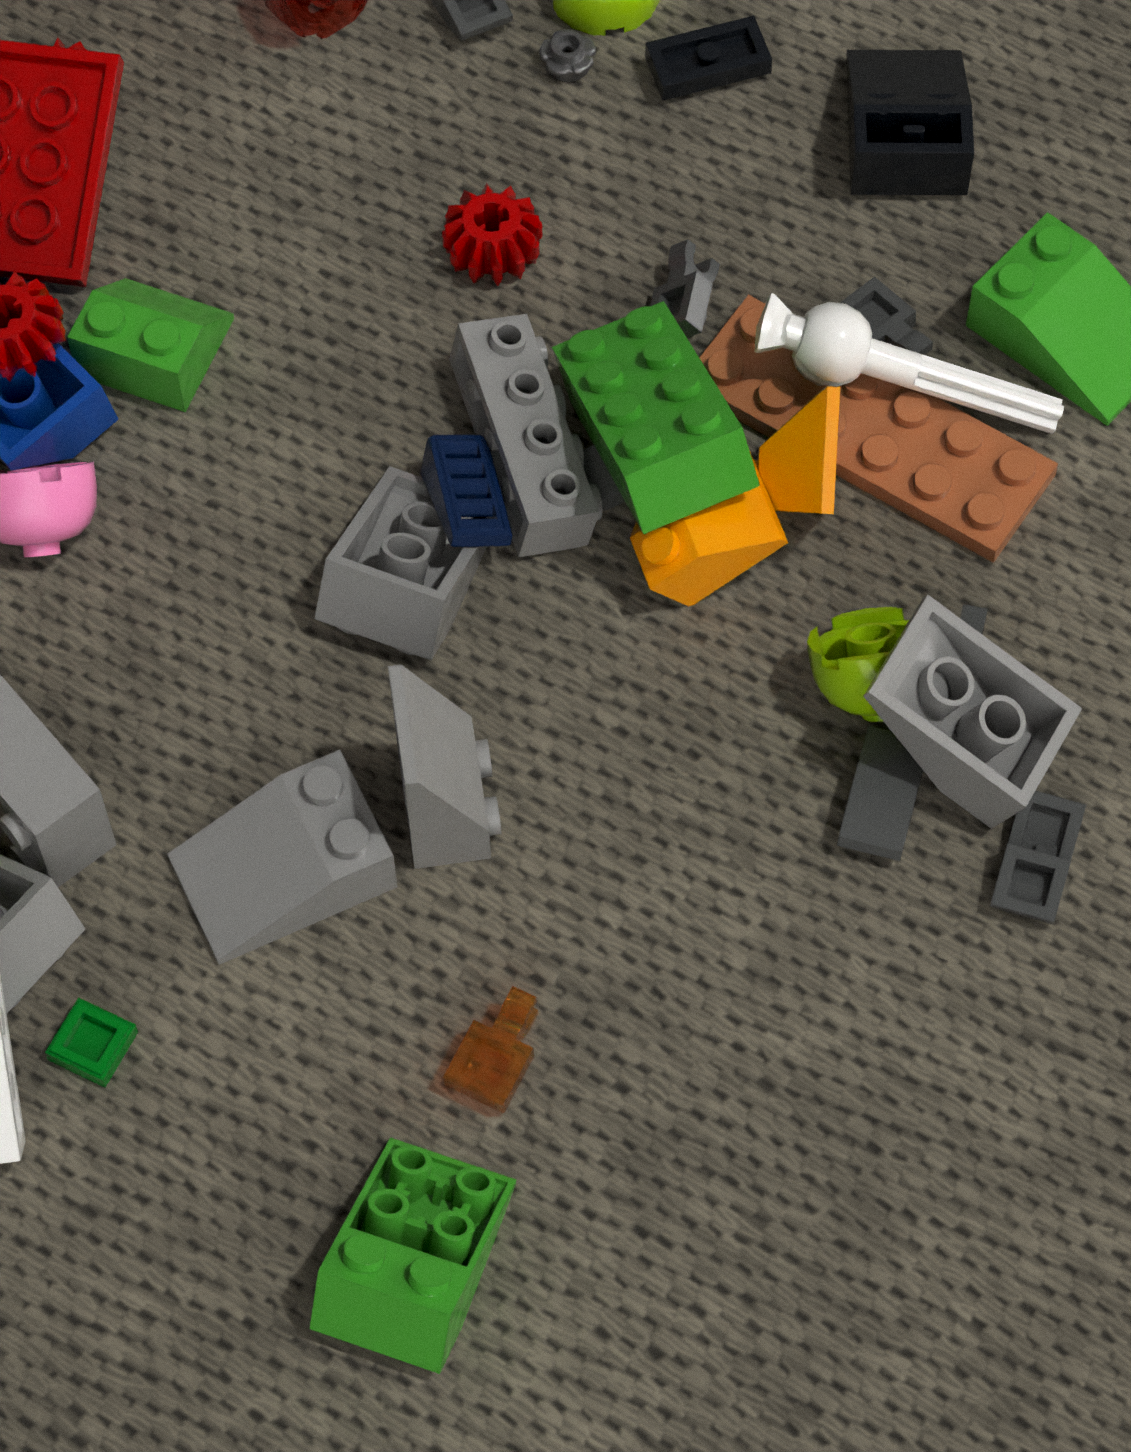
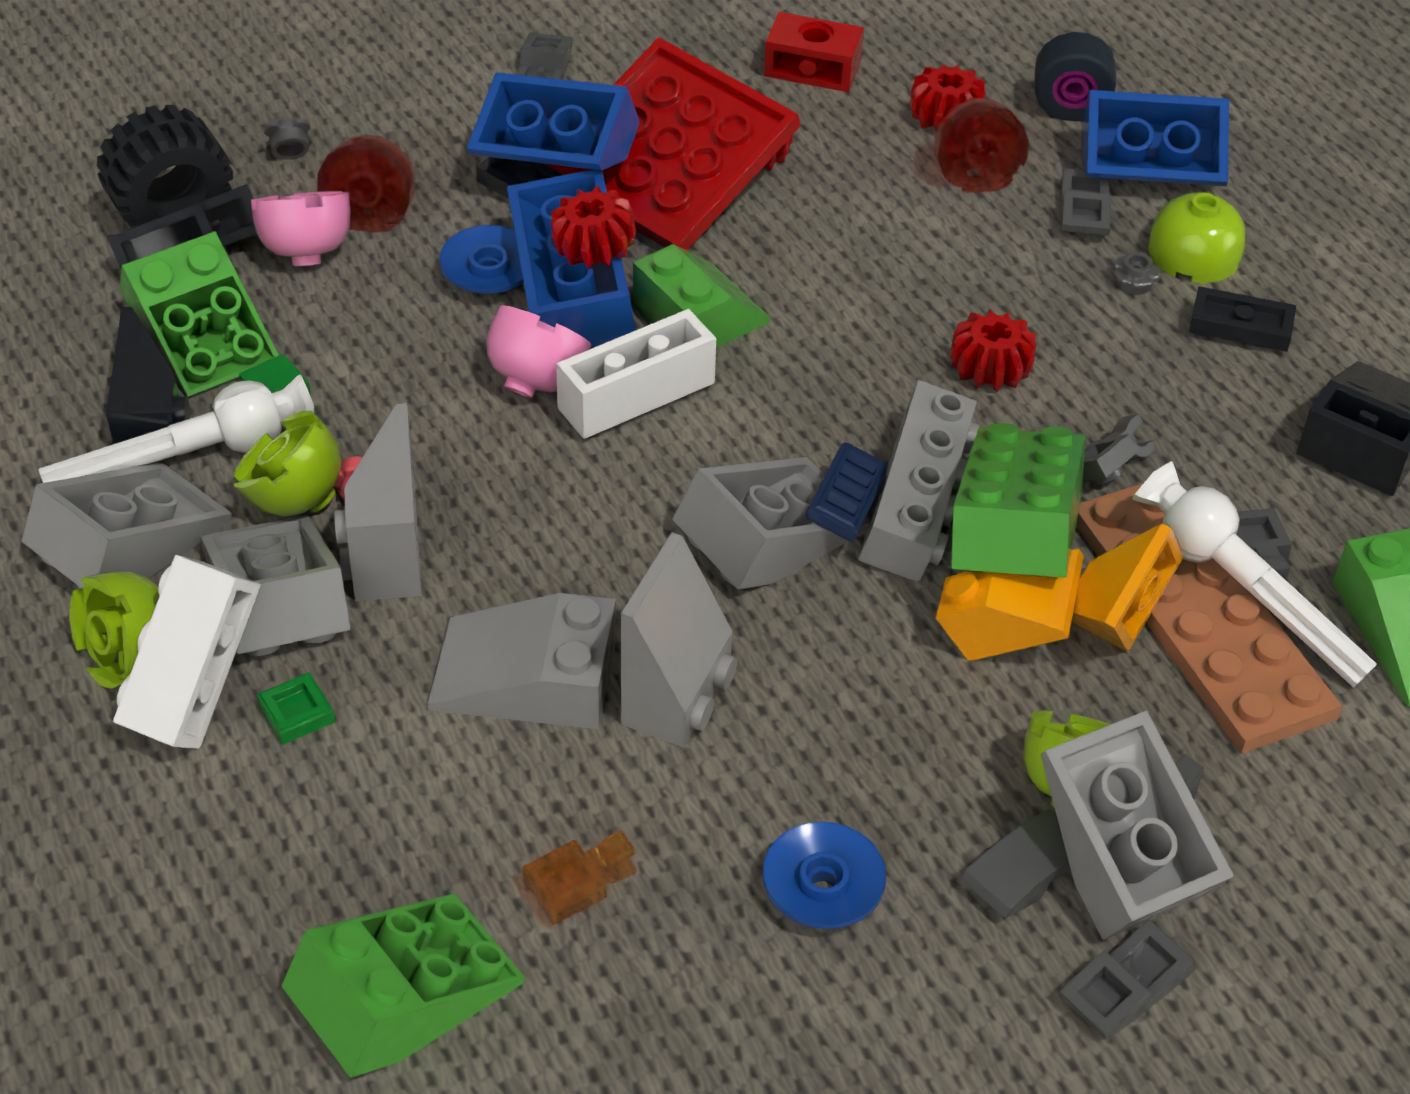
camera: 30 degrees right, 15 degrees down
(160, 469) = (636, 373): none -> white brick
(722, 889) = (830, 855): none -> blue dish

